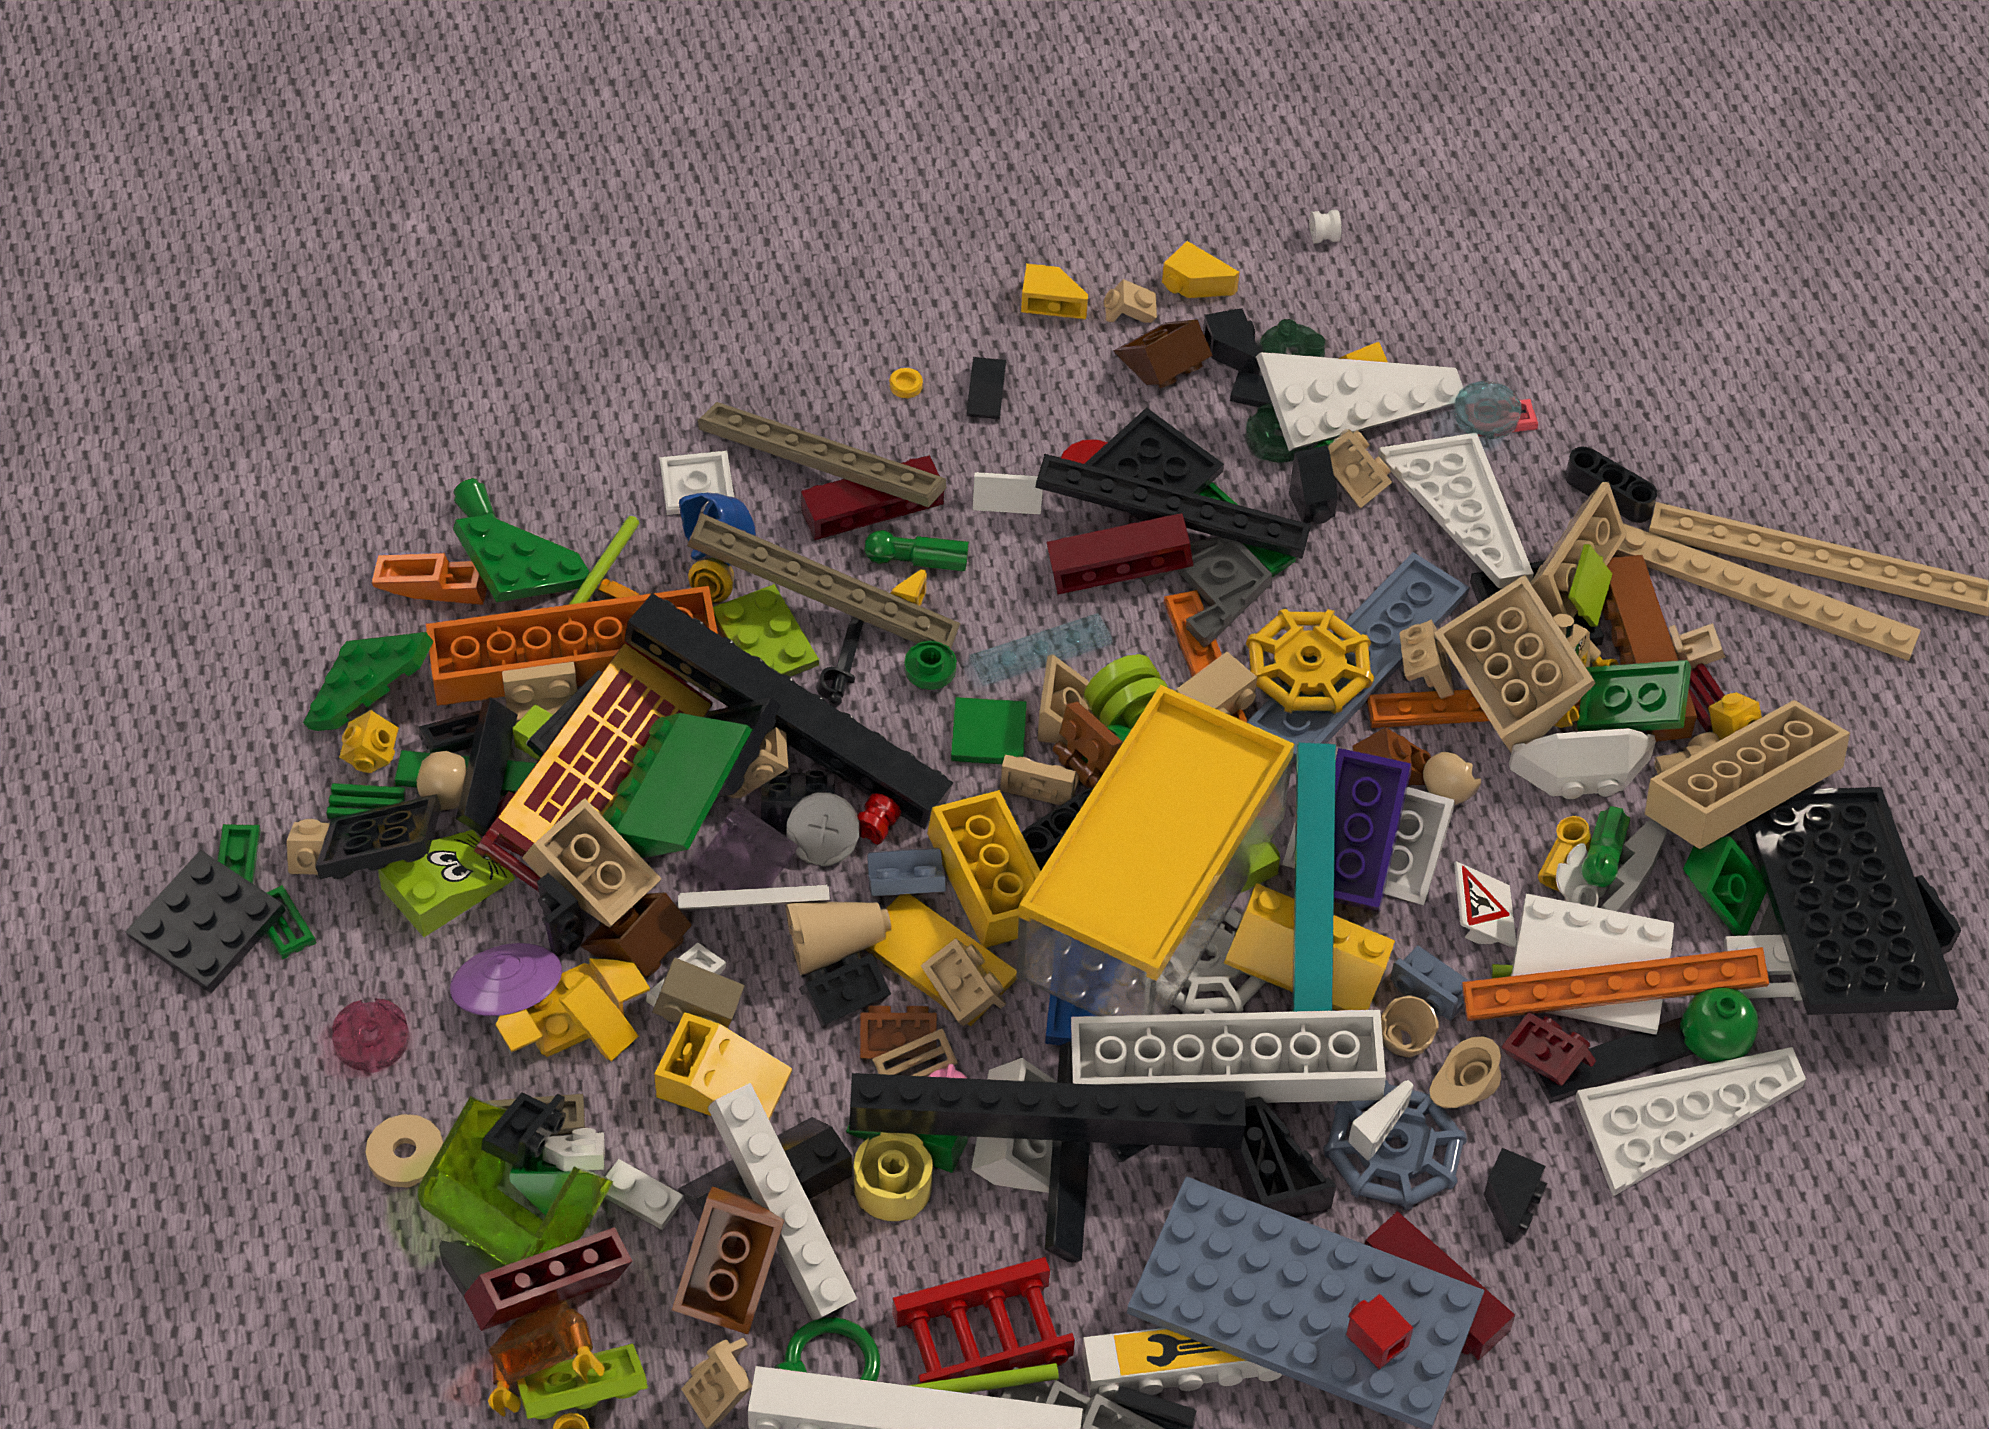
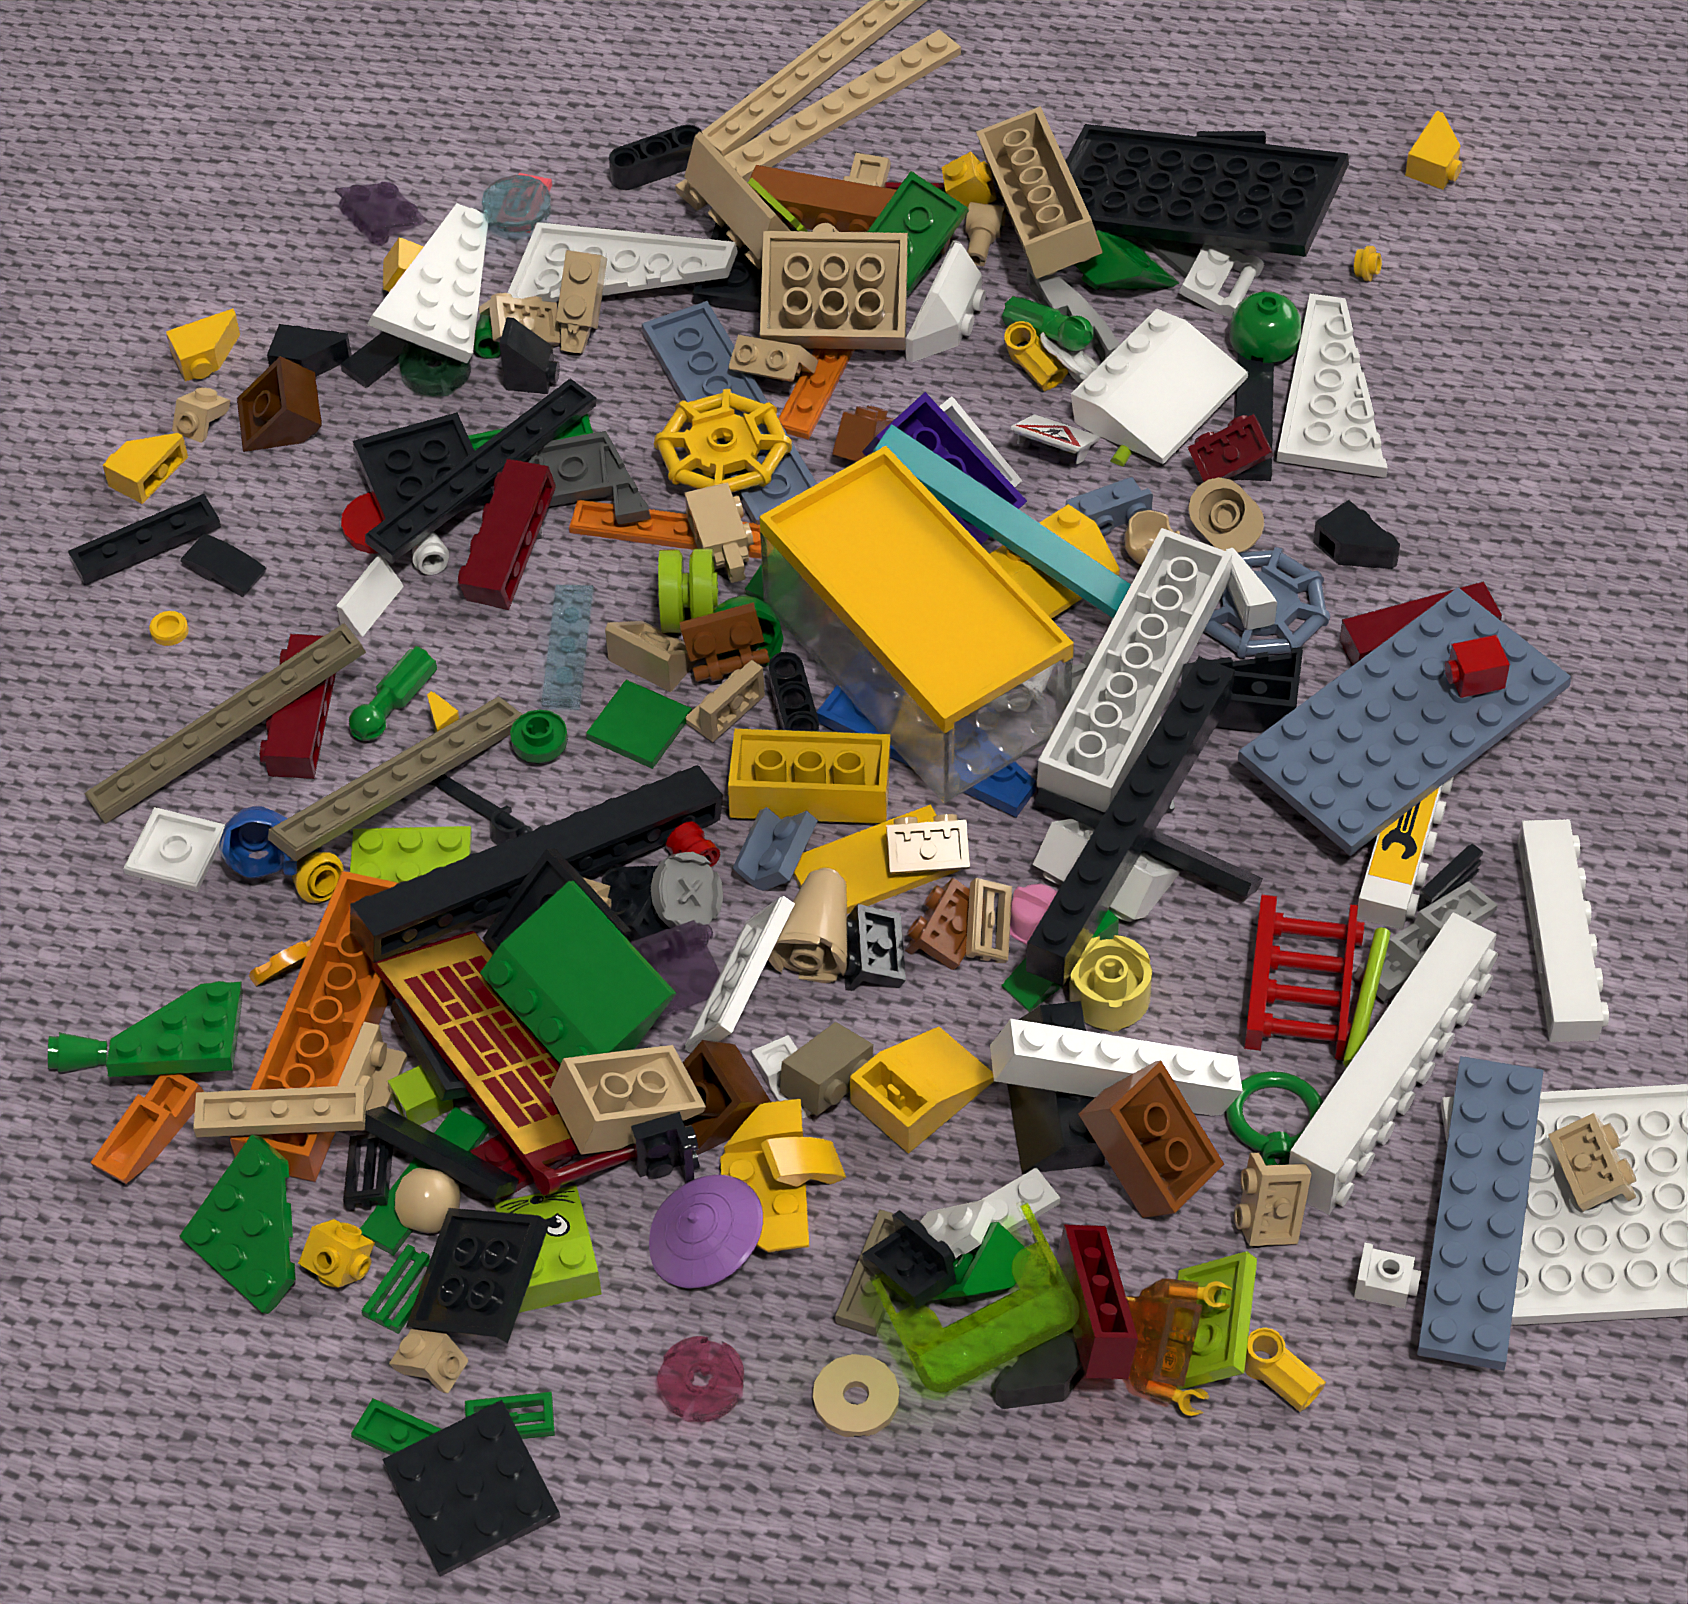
camera: 60 degrees left, 0 degrees up
(456, 641) = (280, 1111): none -> tan plate
(606, 560) = (233, 965): lime bar -> none
(981, 327) = (144, 539): none -> black plate
(1077, 514) = (429, 552): none -> white cone
(1295, 335) = (345, 300): clear green plate -> none
(1325, 226) = (214, 228): white wheel -> none
(1403, 493) = (580, 298): none -> tan hinge
(1423, 323) = (377, 209): none -> clear purple hinge
(1450, 777) = (907, 390): tan hair -> none
(1614, 984) = (1195, 376): orange tile -> none
(1867, 1082) = (1367, 263): none -> yellow plate

